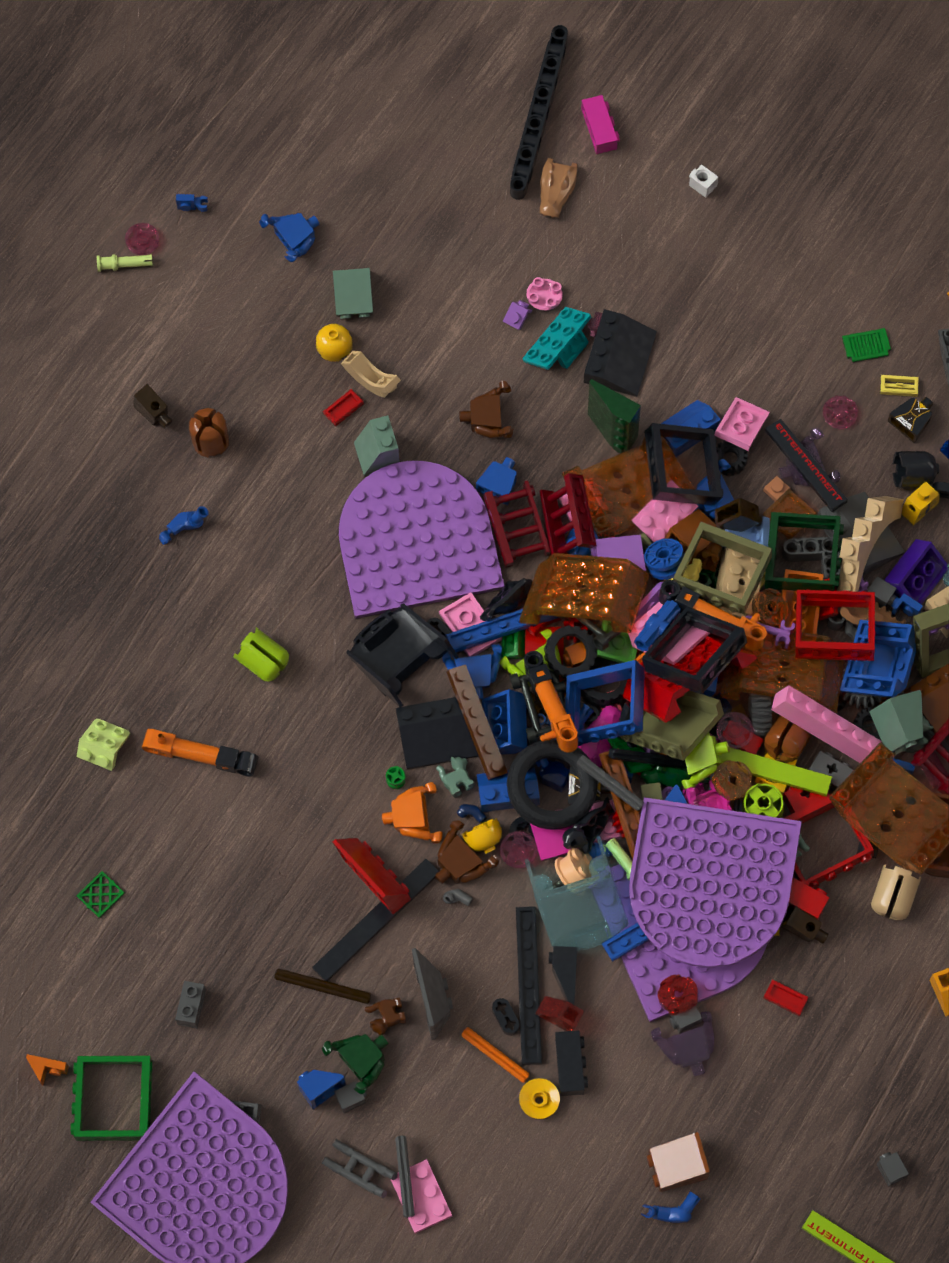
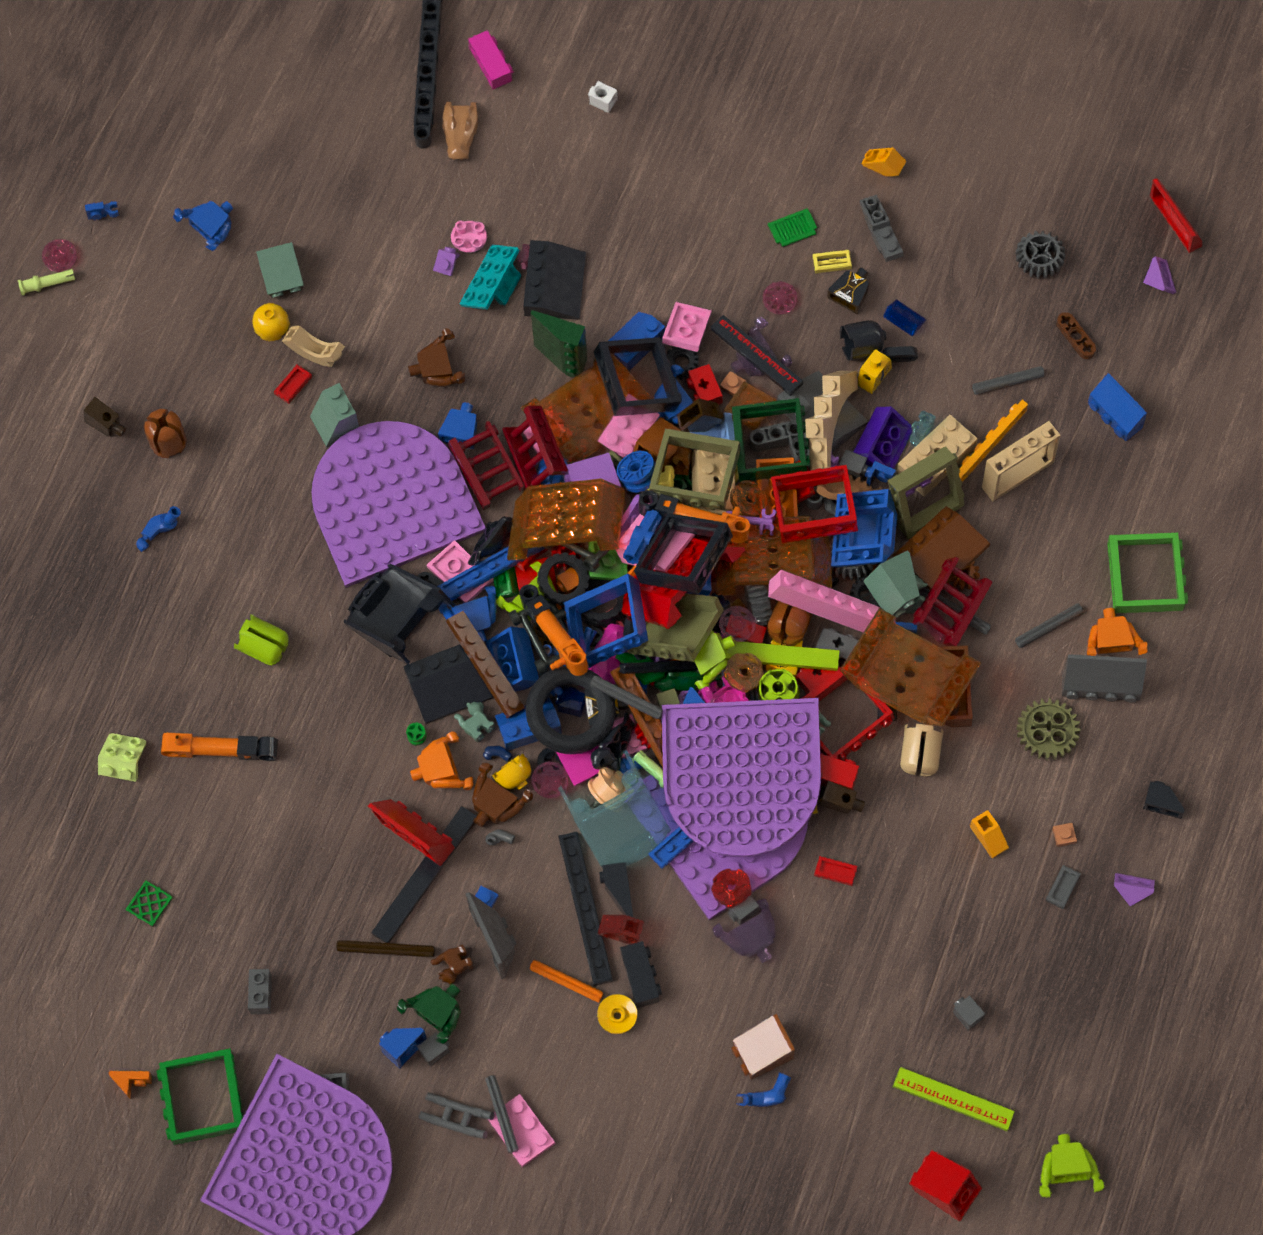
camera: 10 degrees left, 0 degrees up
(432, 954) = (487, 896): none -> blue plate
(509, 1014) = (565, 945): black beam -> none
(748, 477) = (704, 377): none -> red brick

